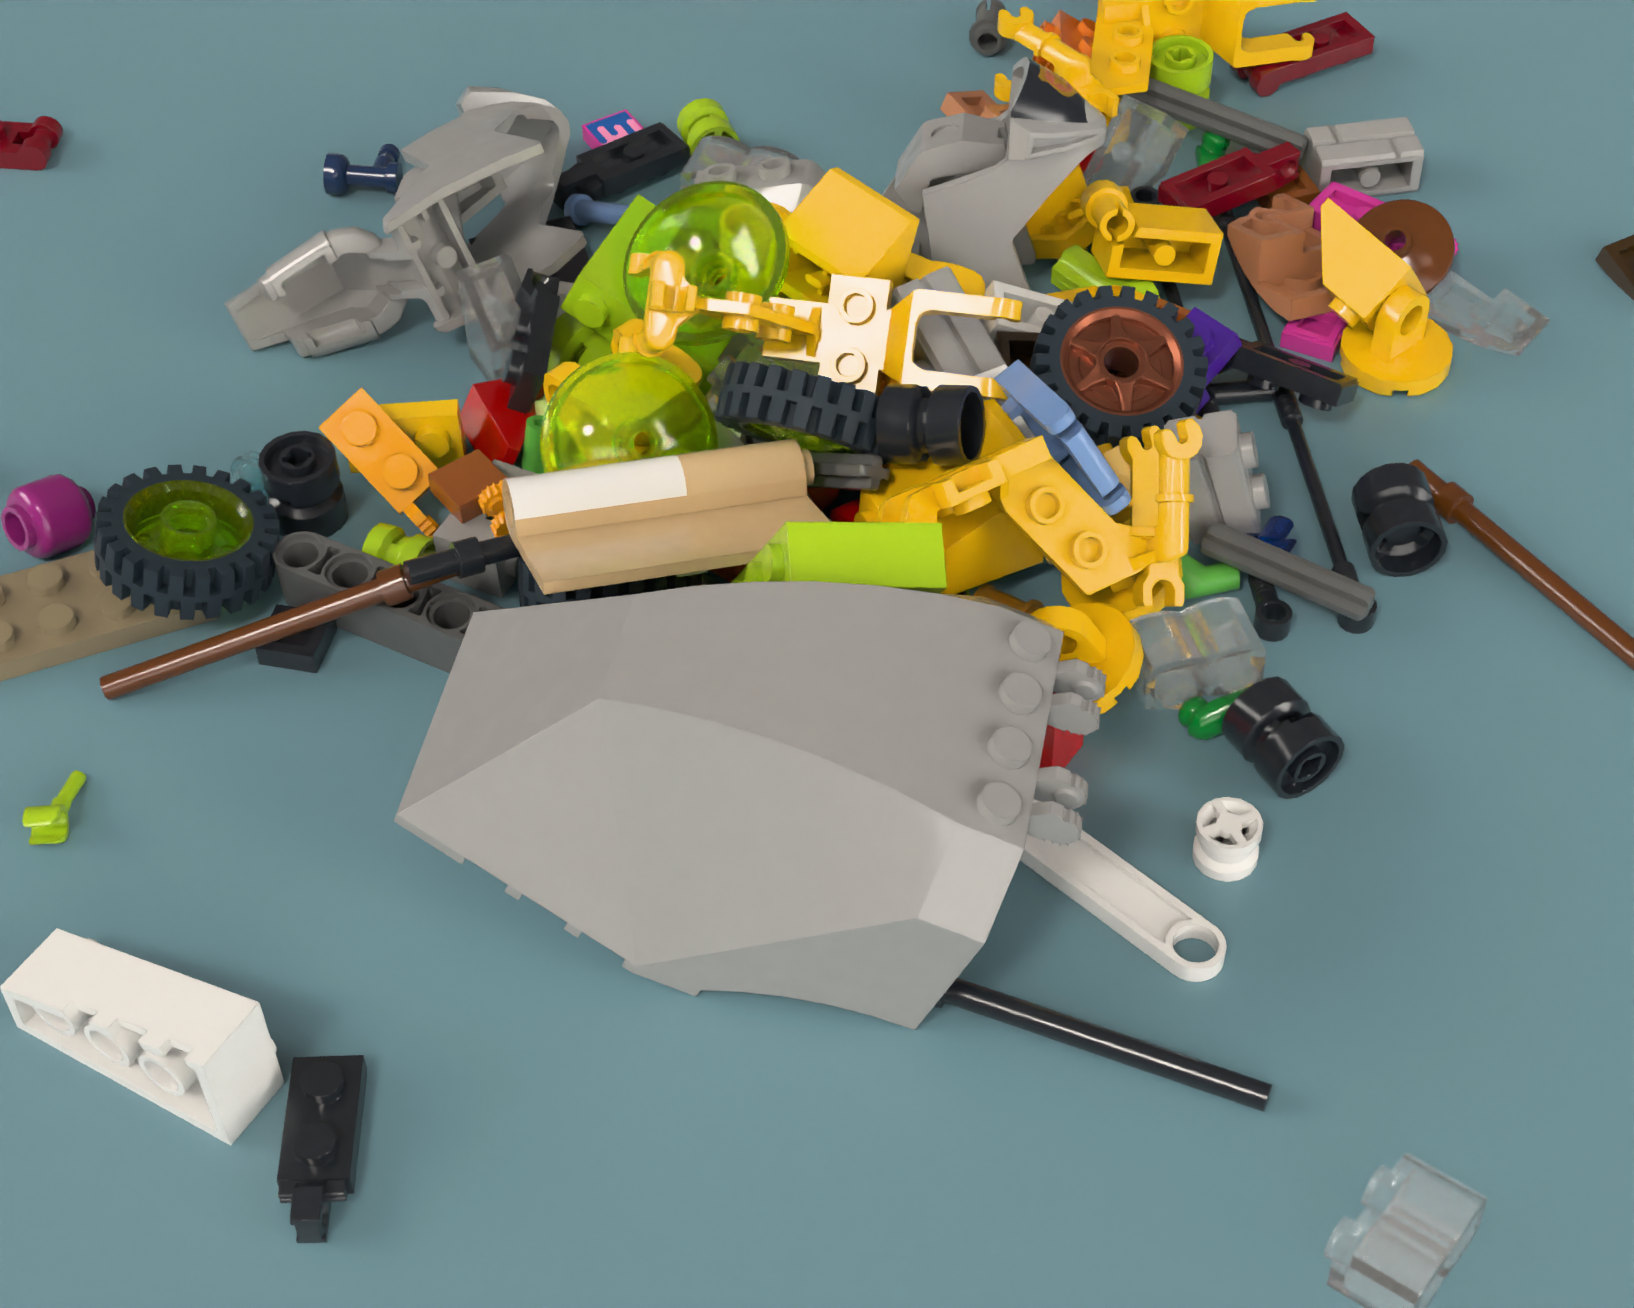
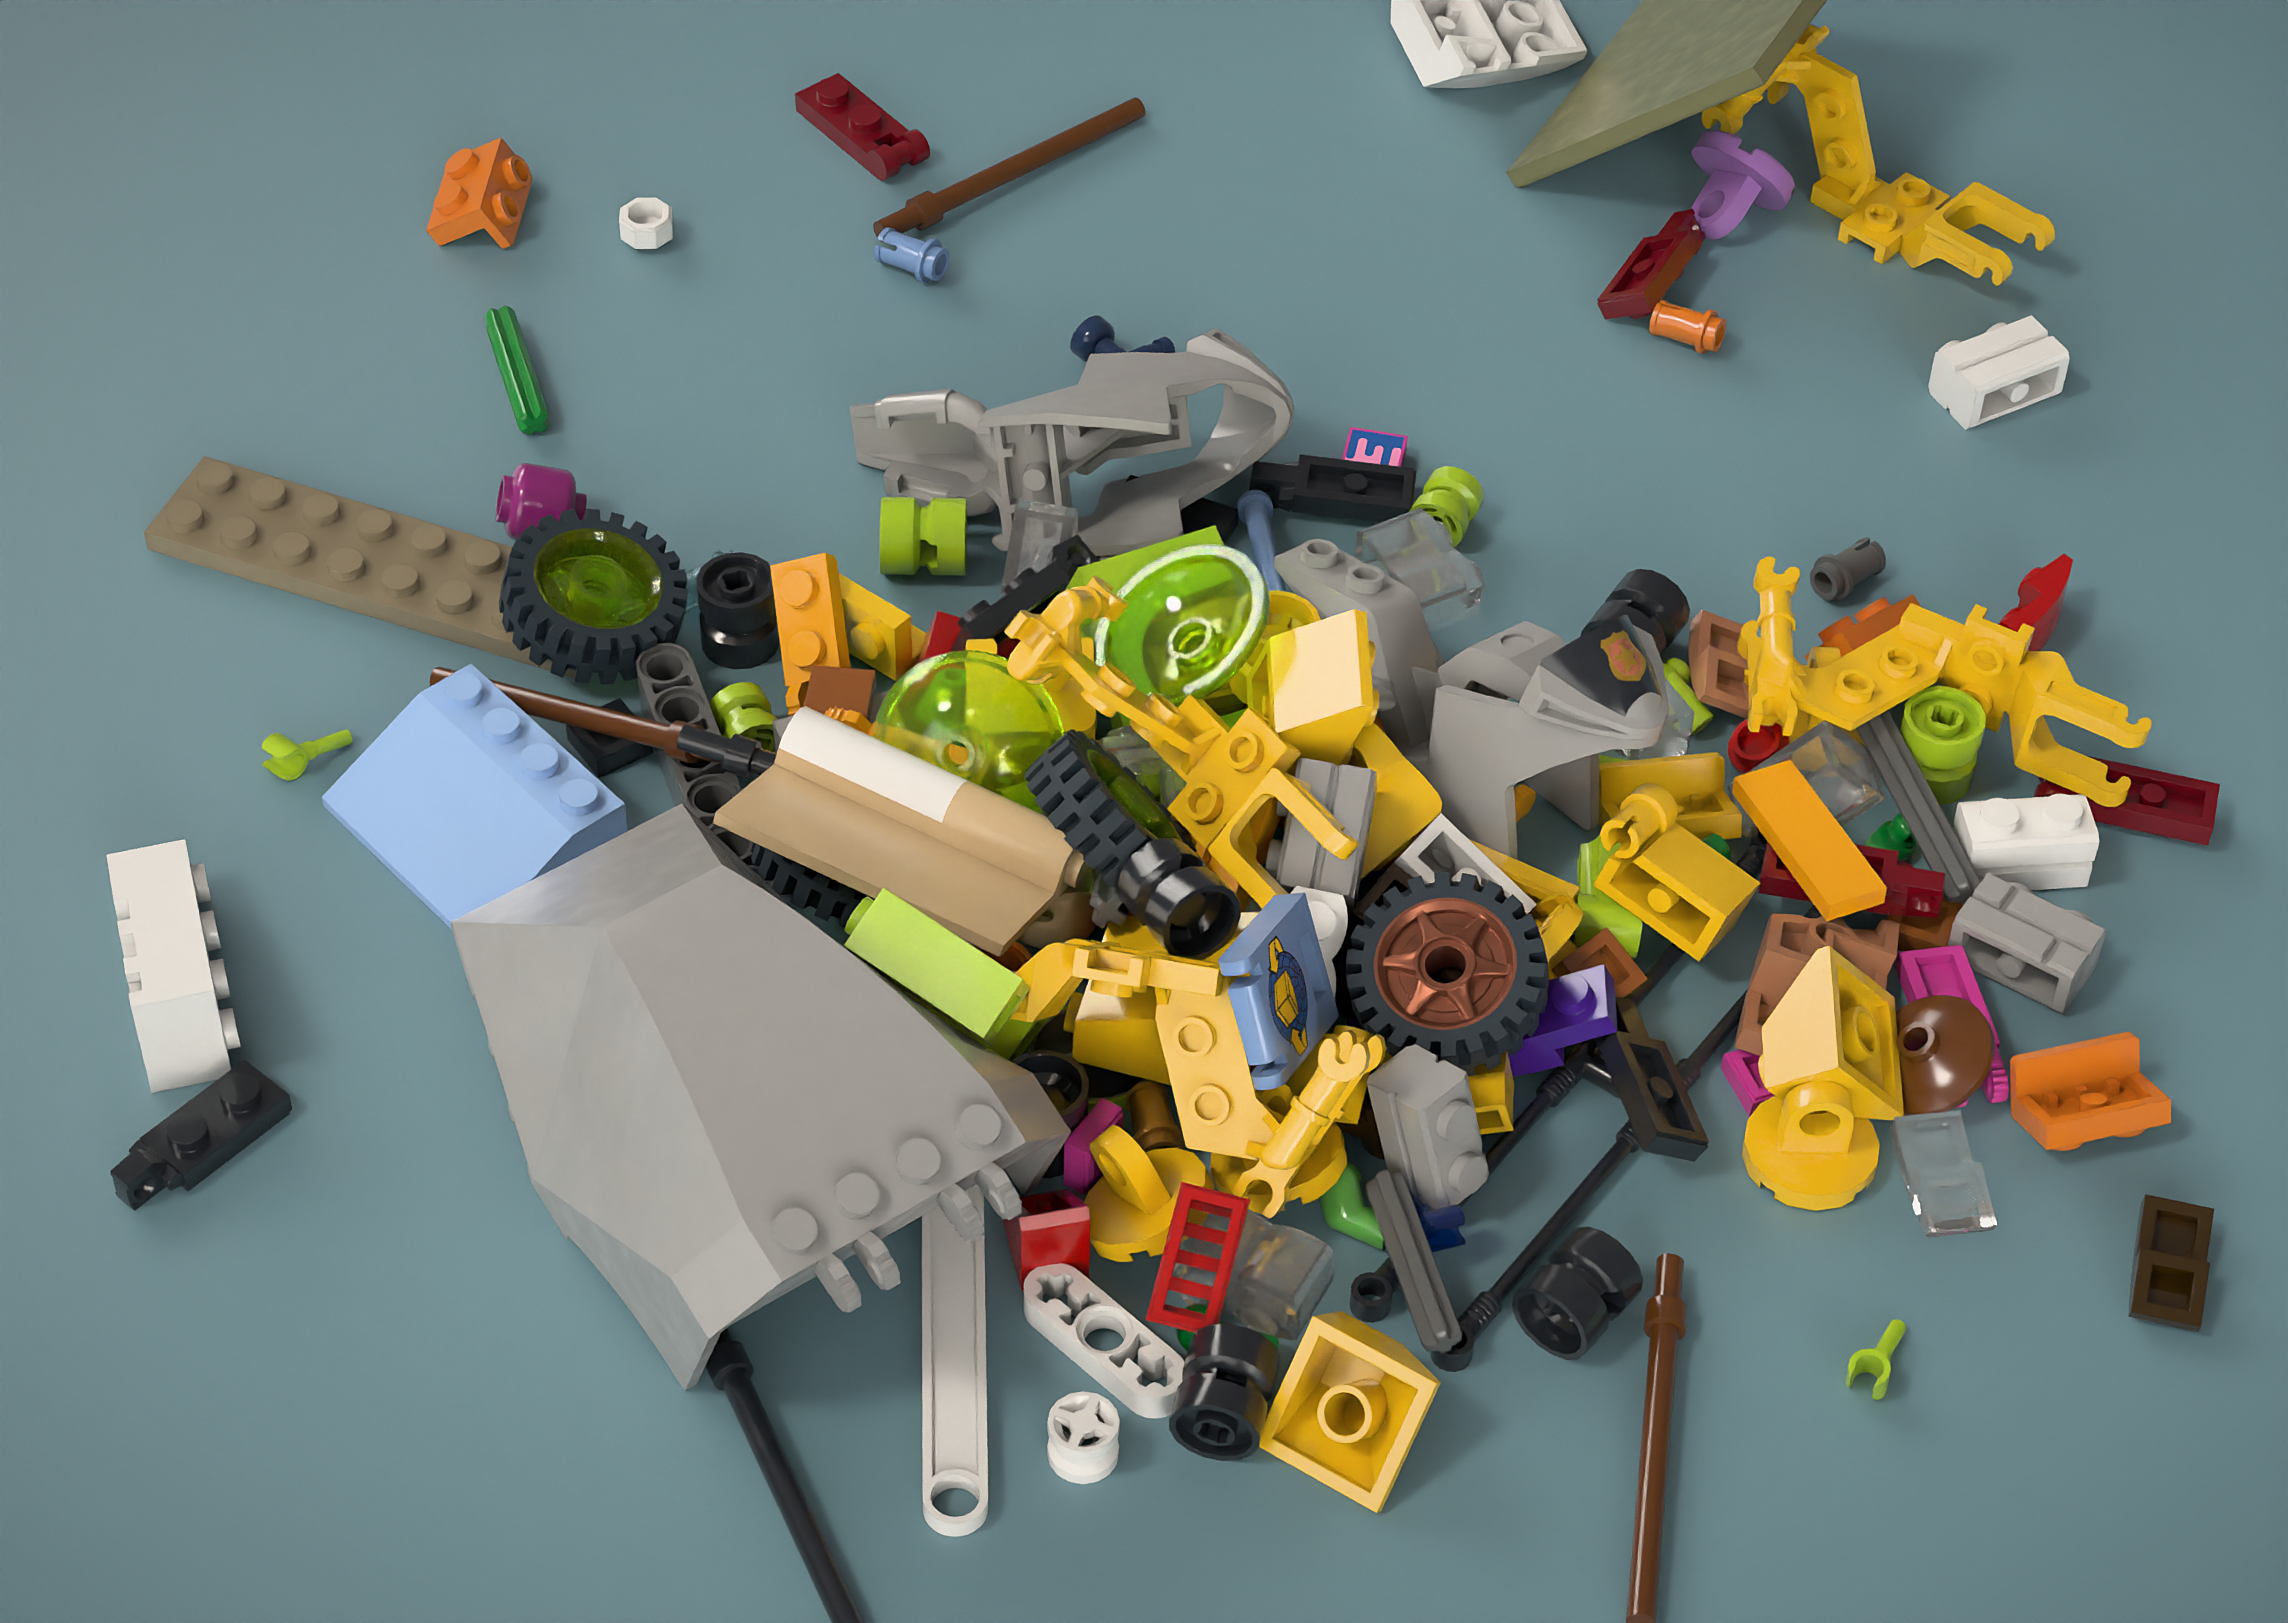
camera: 40 degrees right, 0 degrees up
(108, 161) = (929, 208): none -> reddish brown bar
(133, 196) = (923, 258): none -> medium blue pin
(260, 749) = (471, 797): none -> light blue slope
(381, 355) = (923, 536): none -> lime wheel
(906, 109) = (1651, 604): none -> black wheel
(1172, 753) = (1096, 1311): none -> white beam
(1191, 632) = (1210, 1202): none -> red slope
(1195, 170) = (1809, 840): none -> light orange tile
(1298, 95) = (2030, 839): none -> white brick
(1371, 684) = (1349, 1408): none -> yellow slope
(1502, 220) = (2085, 1092): none -> orange bracket
(1590, 442) = (1877, 1359): none -> lime hand

